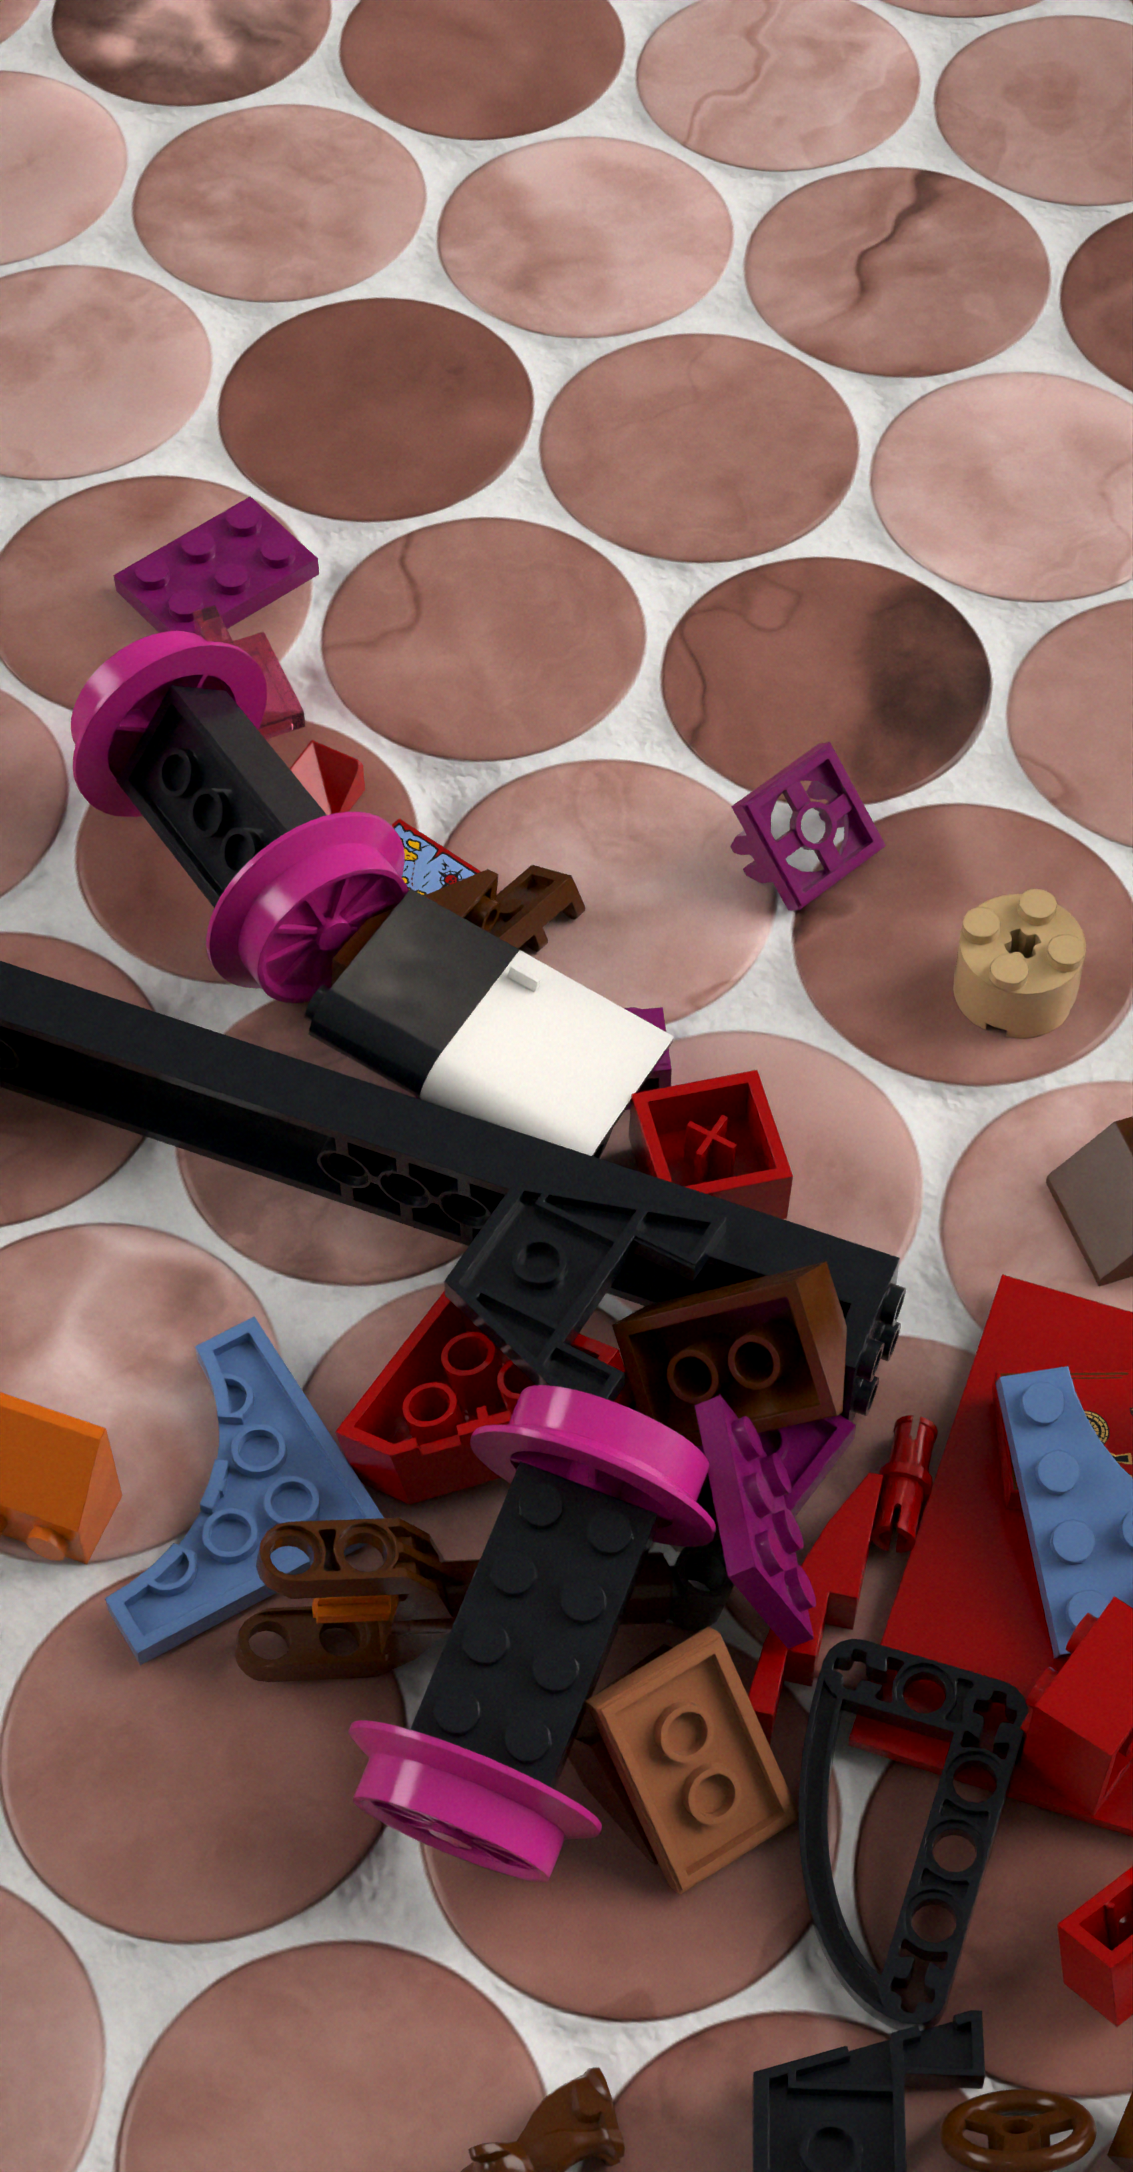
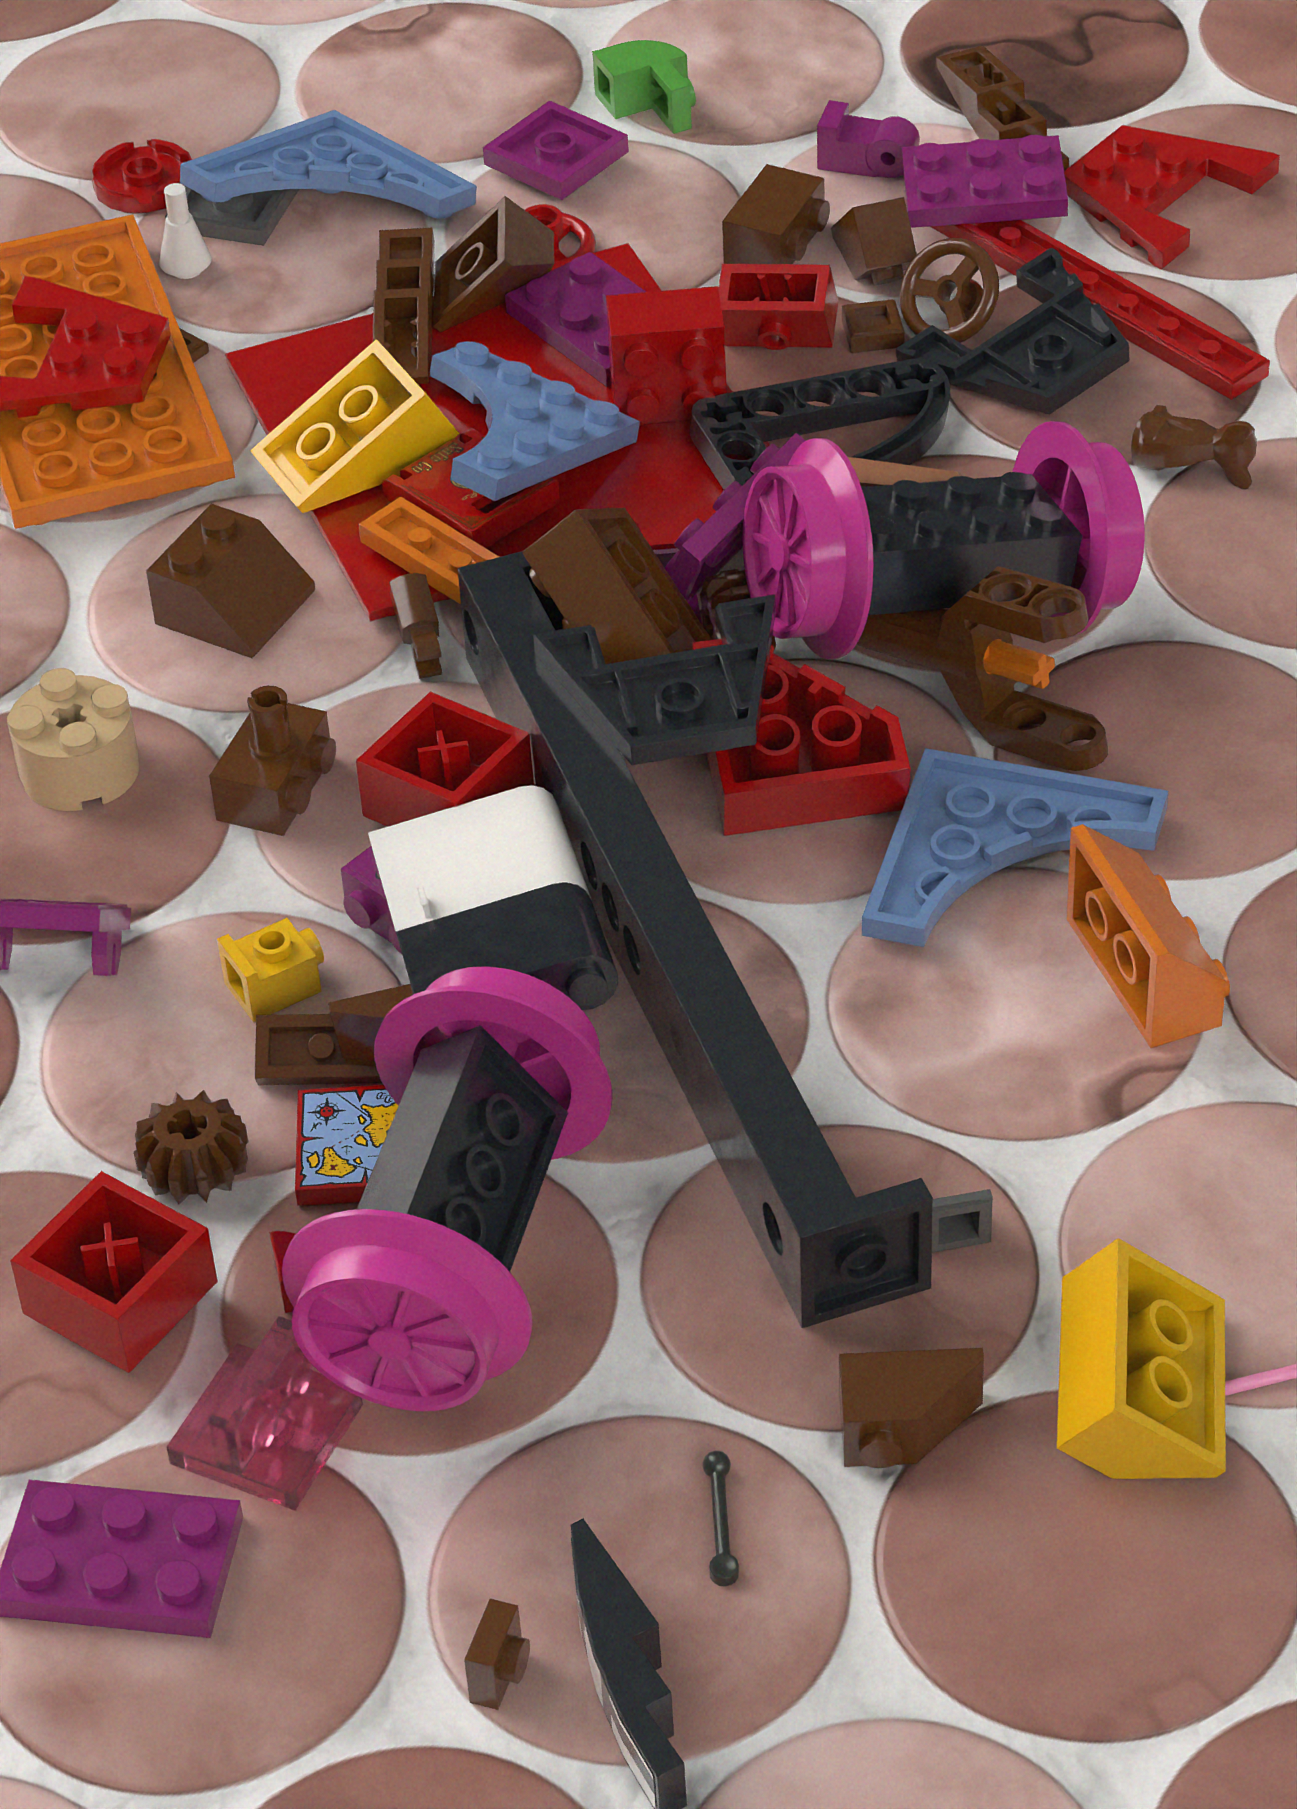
camera: 130 degrees left, 10 degrees down
(420, 666) = (114, 1271): none -> red brick
(499, 784) = (191, 1147): none -> reddish brown gear
(631, 934) = (271, 967): none -> yellow brick
(860, 1076) = (272, 763): none -> reddish brown brick
(948, 1288) = (417, 621): none -> reddish brown bar
(971, 1348) = (422, 544): none -> orange plate
(1064, 2052) = (872, 326): none -> reddish brown tile

